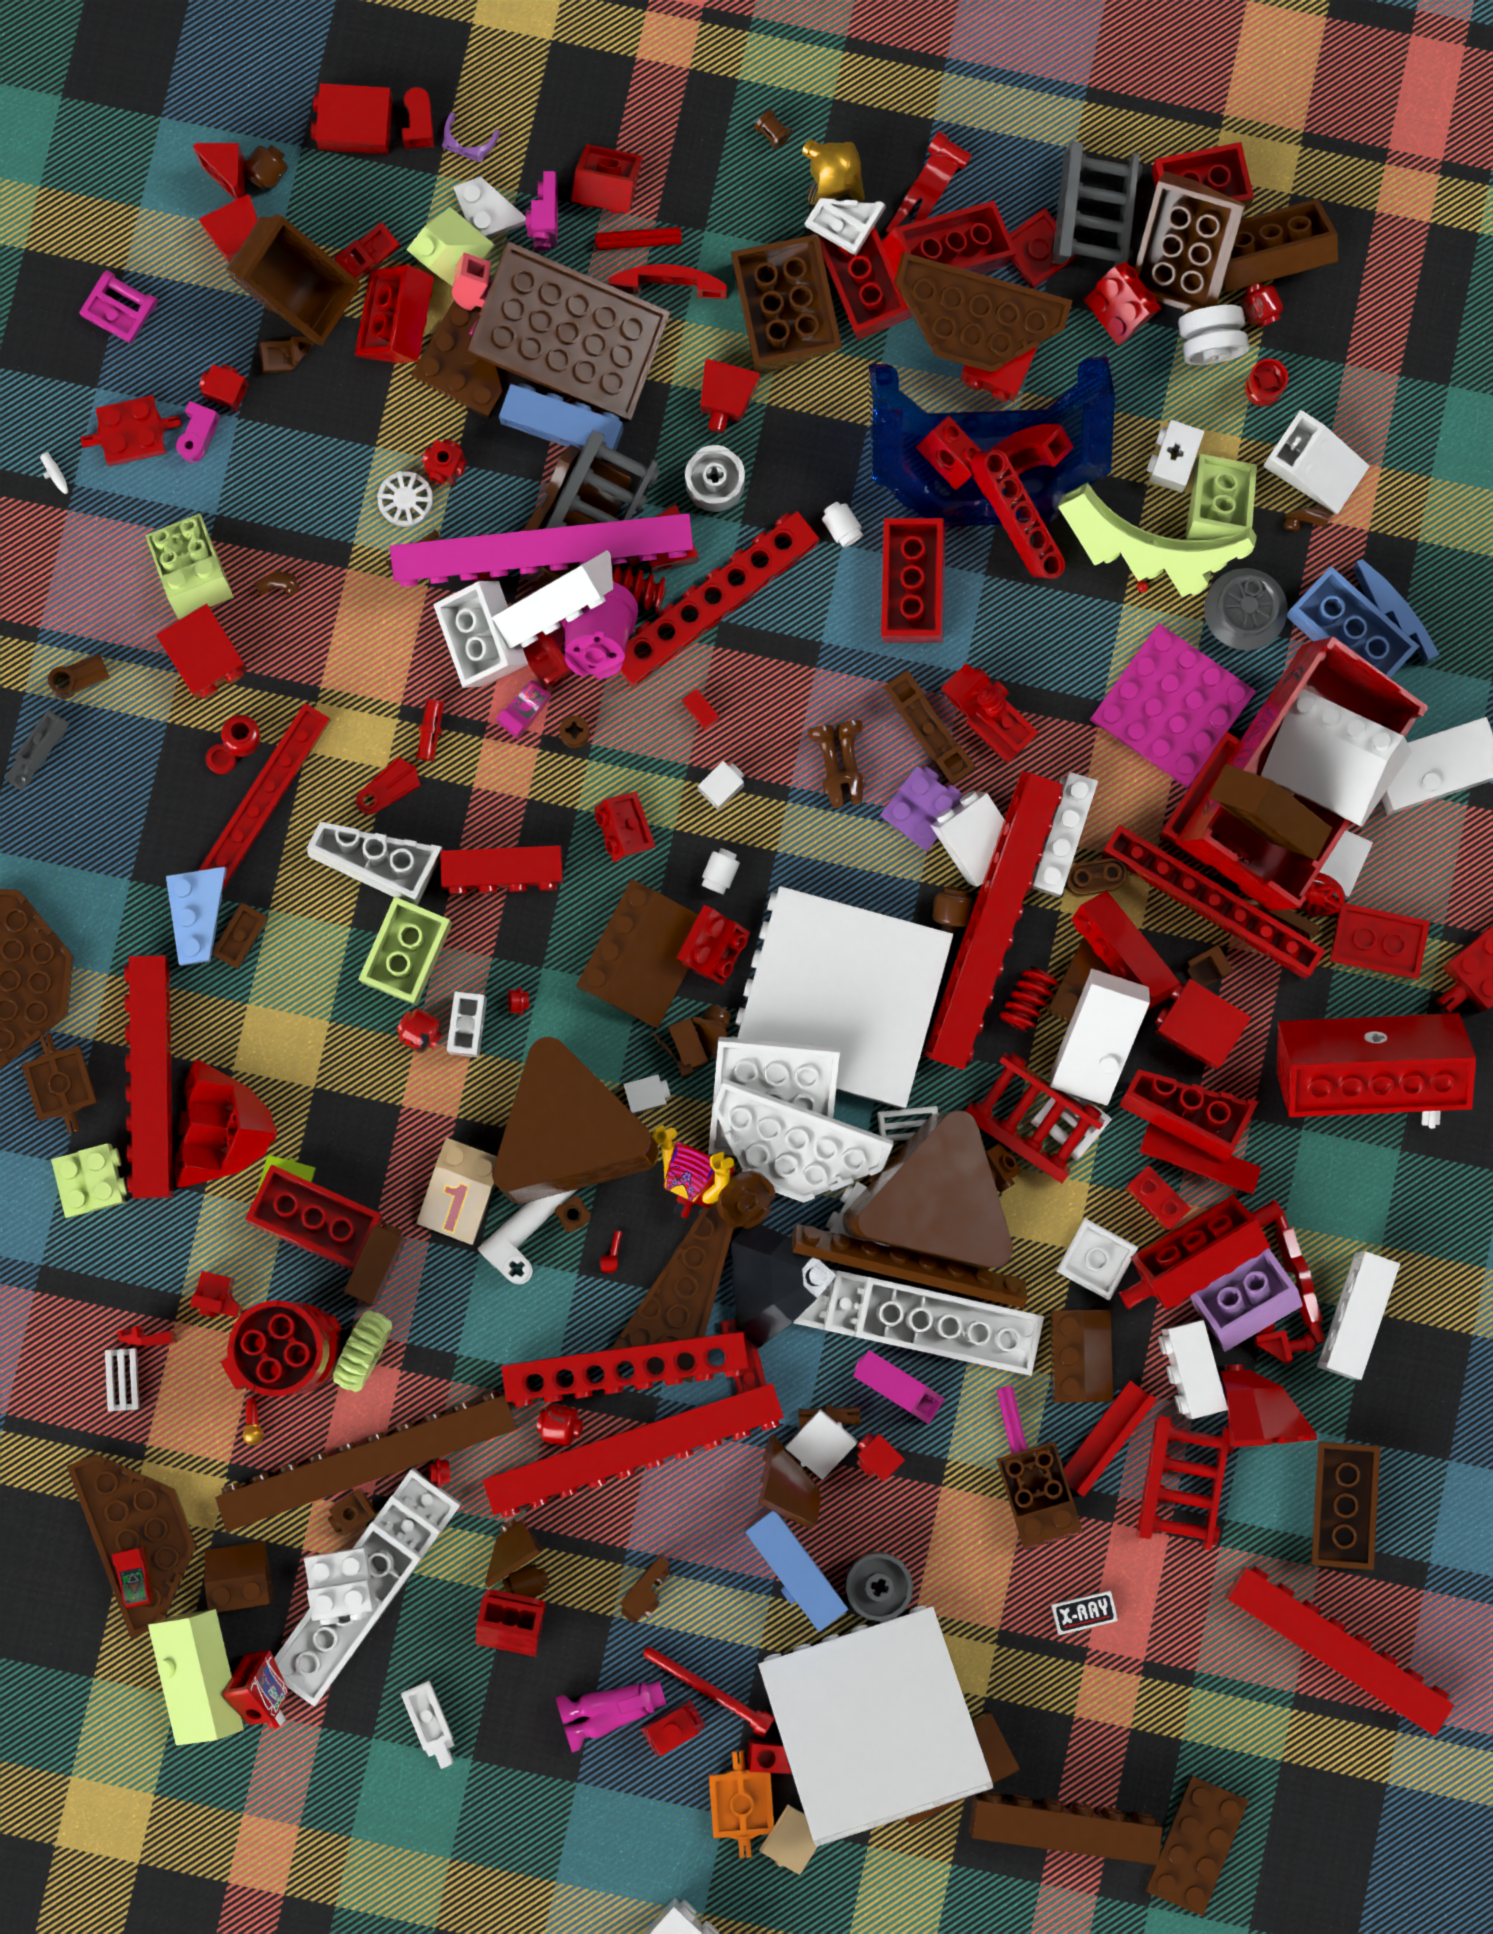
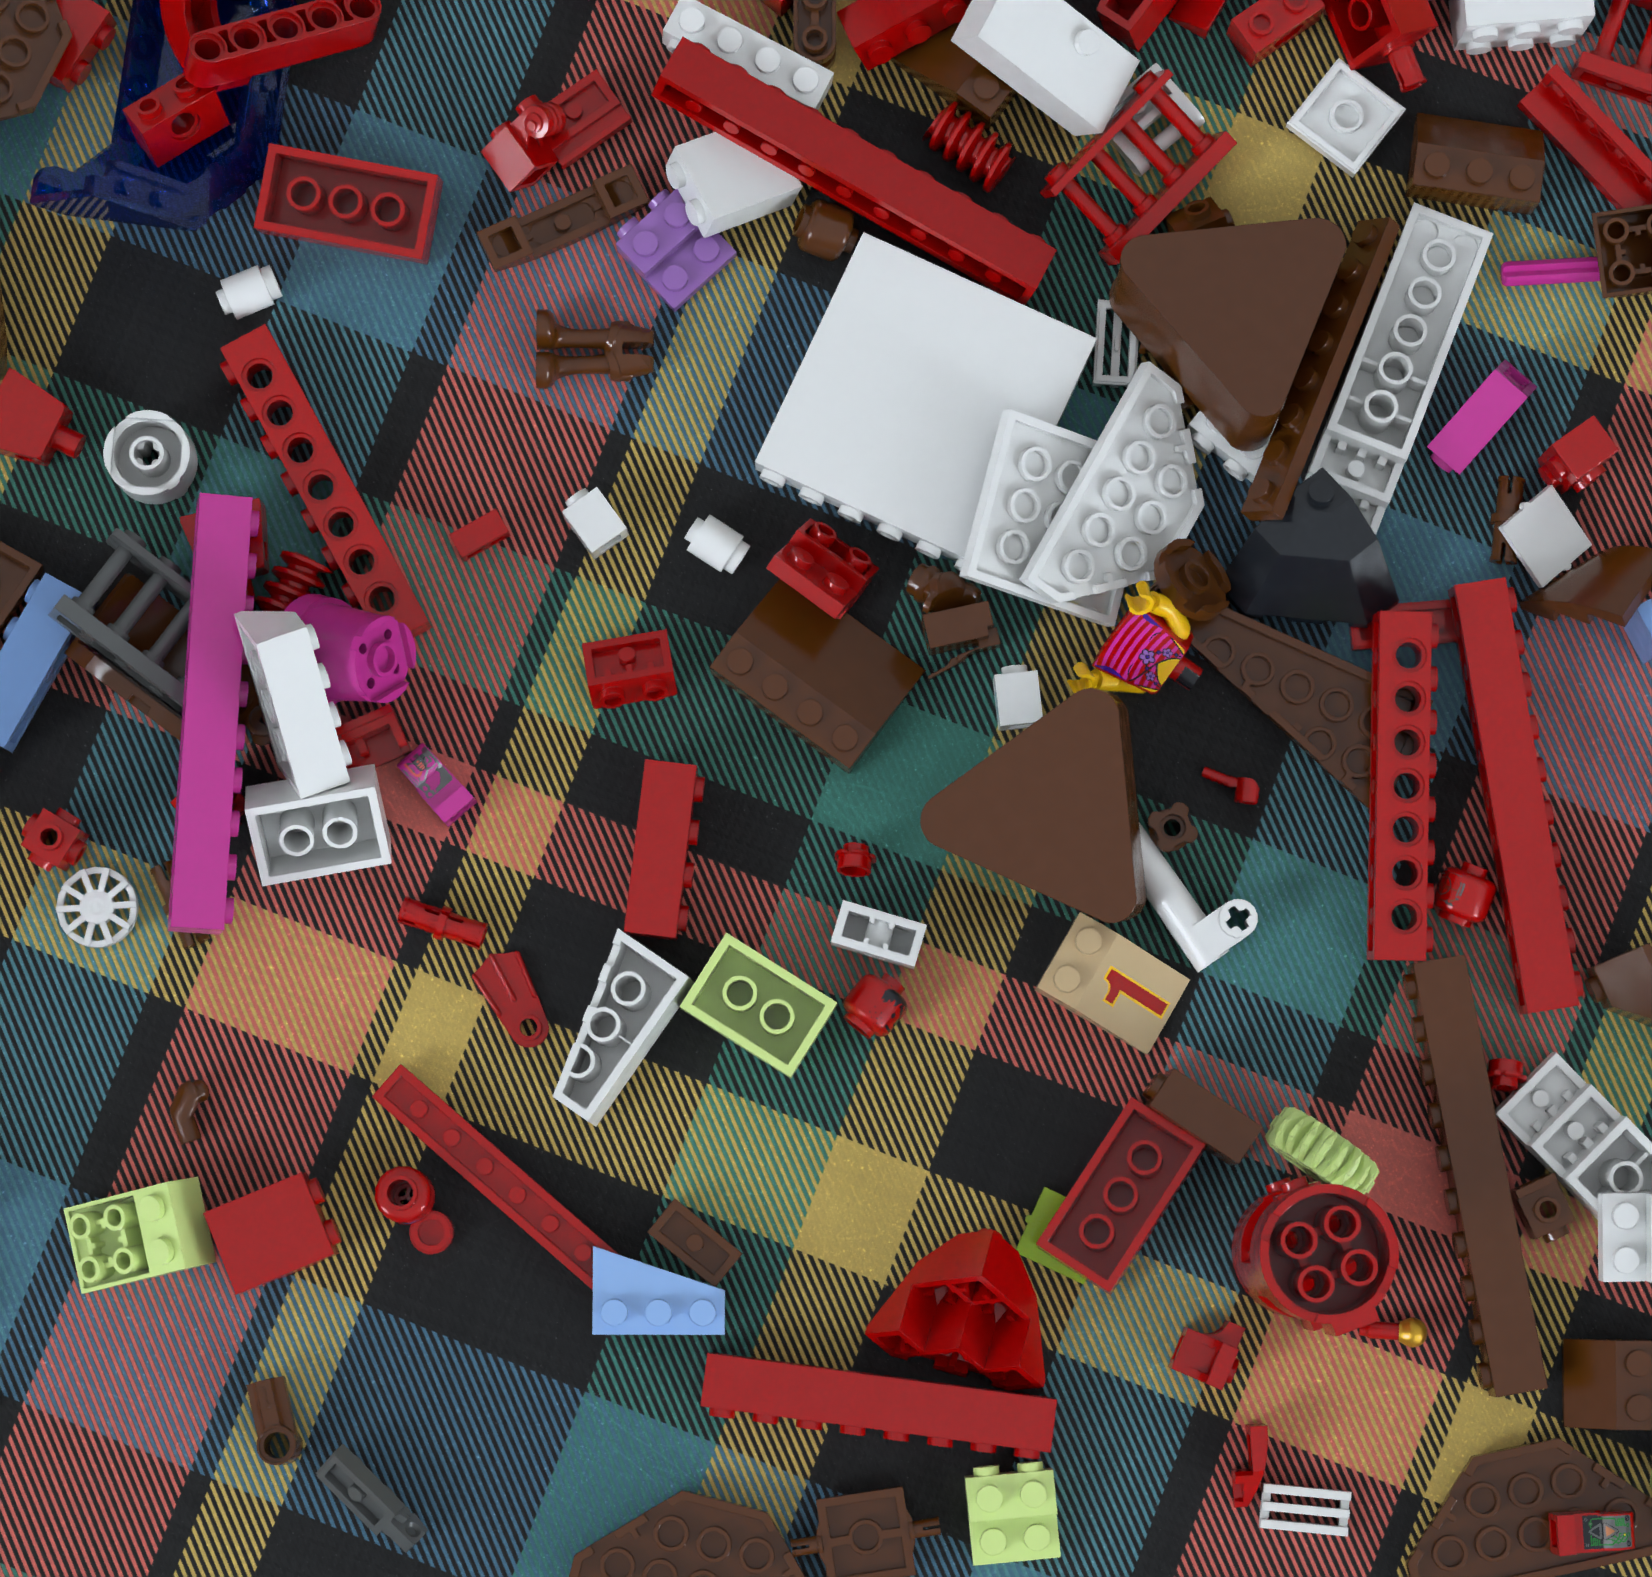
camera: 80 degrees left, 0 degrees up
(574, 737) = (487, 726): reddish brown wheel -> none

